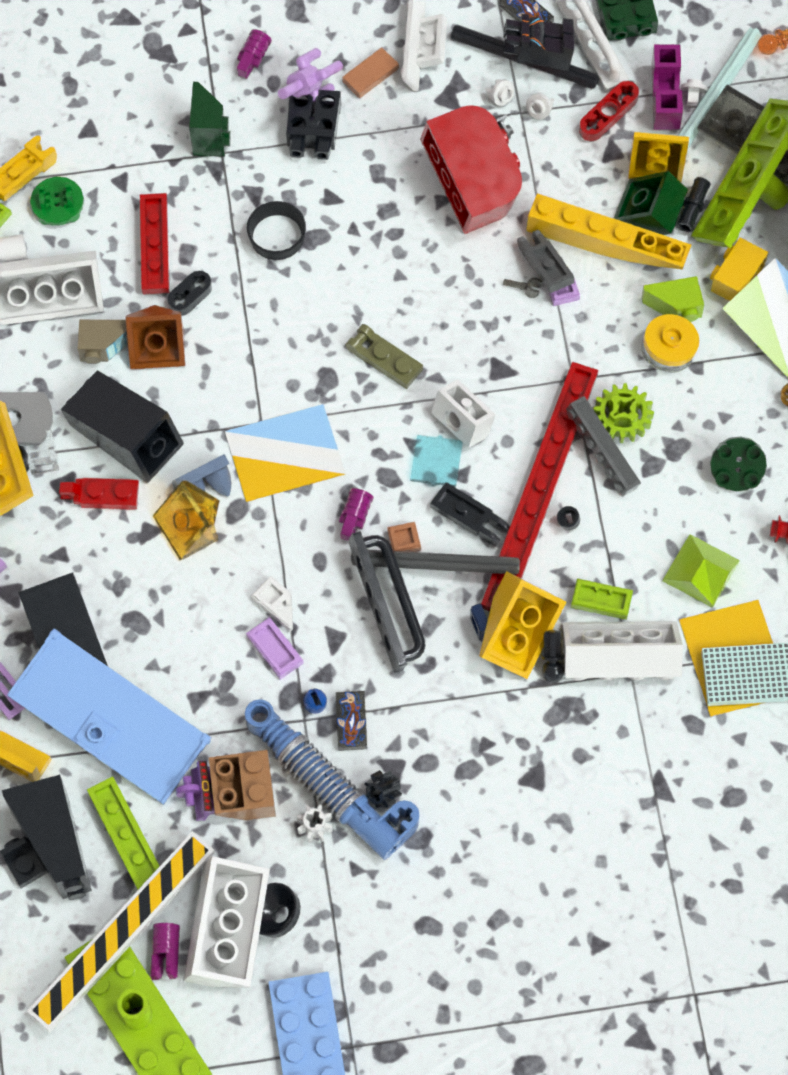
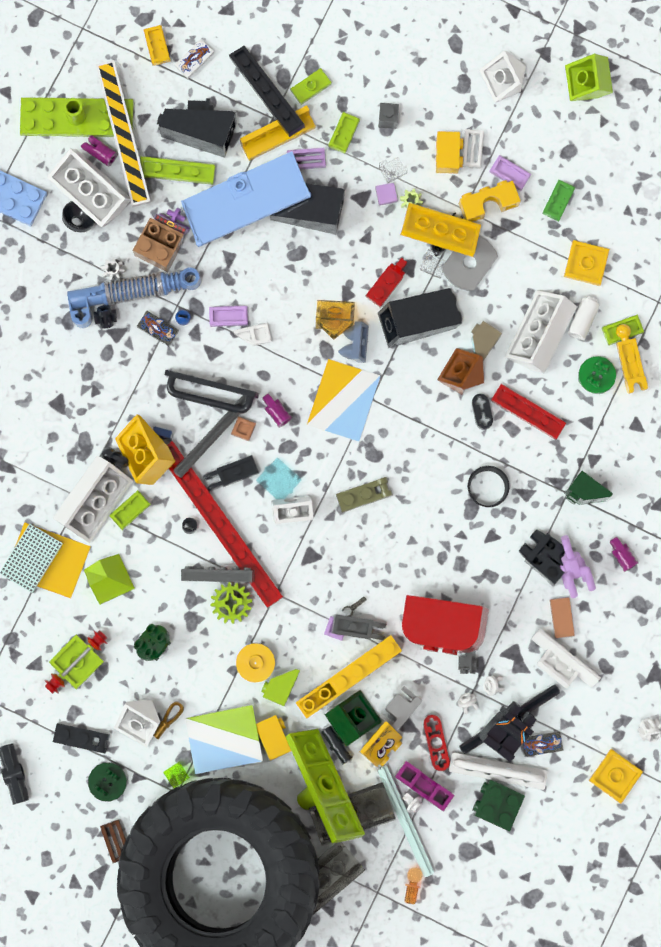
camera: 120 degrees right, 15 degrees up
(603, 154) = (401, 708): none -> light grey panel

